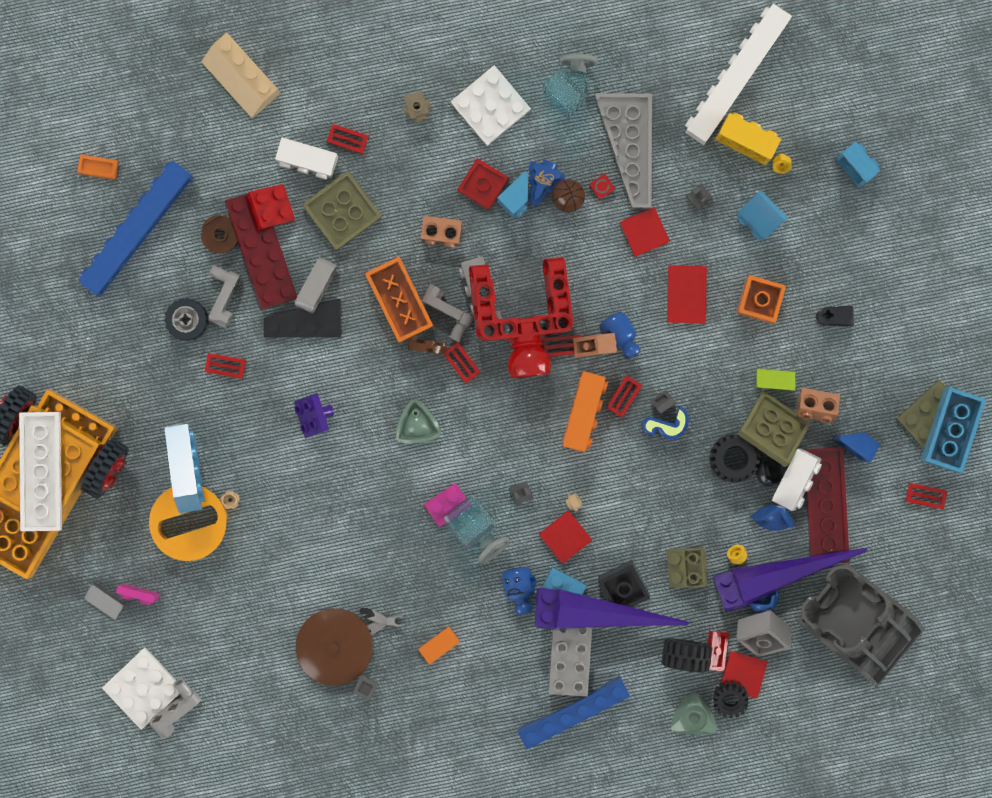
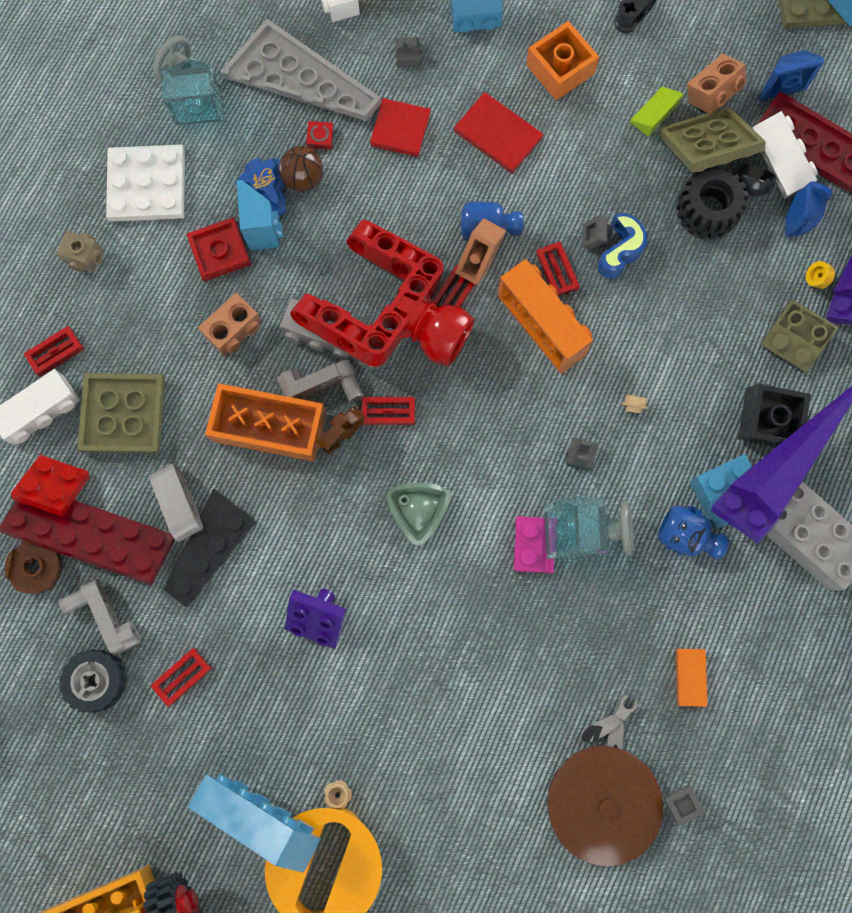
camera: 50 degrees left, 10 degrees down
(565, 537) = (667, 442): red tile -> none

